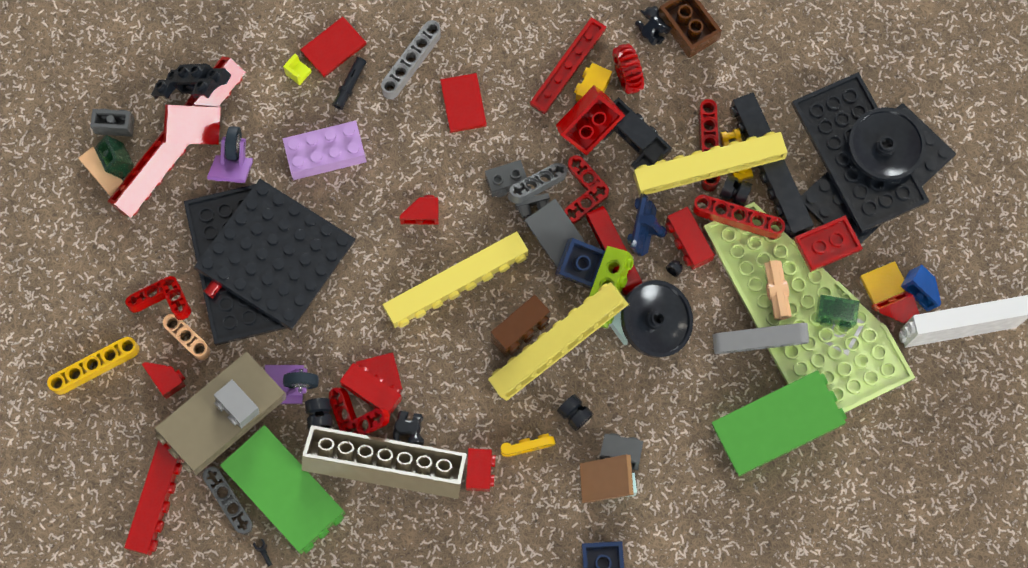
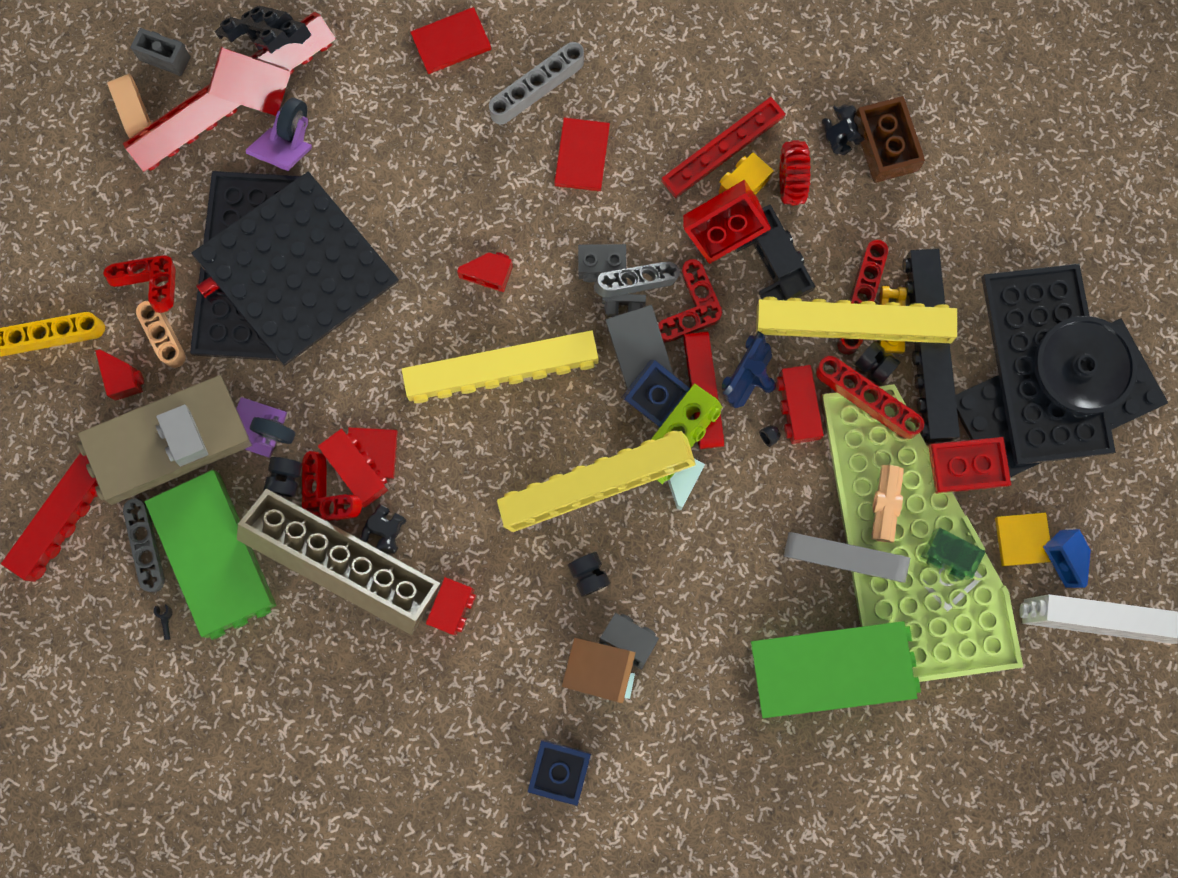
camera: 20 degrees right, 5 degrees up
(114, 157) = (147, 93): clear green brick -> none
(296, 70) = (397, 54): neon yellow panel -> none
(324, 150) = (396, 160): lavender brick -> none
(346, 89) = (448, 96): black pin -> none
(520, 326) = (557, 448): reddish brown brick -> none
(526, 445) = (517, 595): yellow plate -> none
(657, 319) = (726, 491): black dish -> none
(899, 307) = (1032, 573): red slope -> none

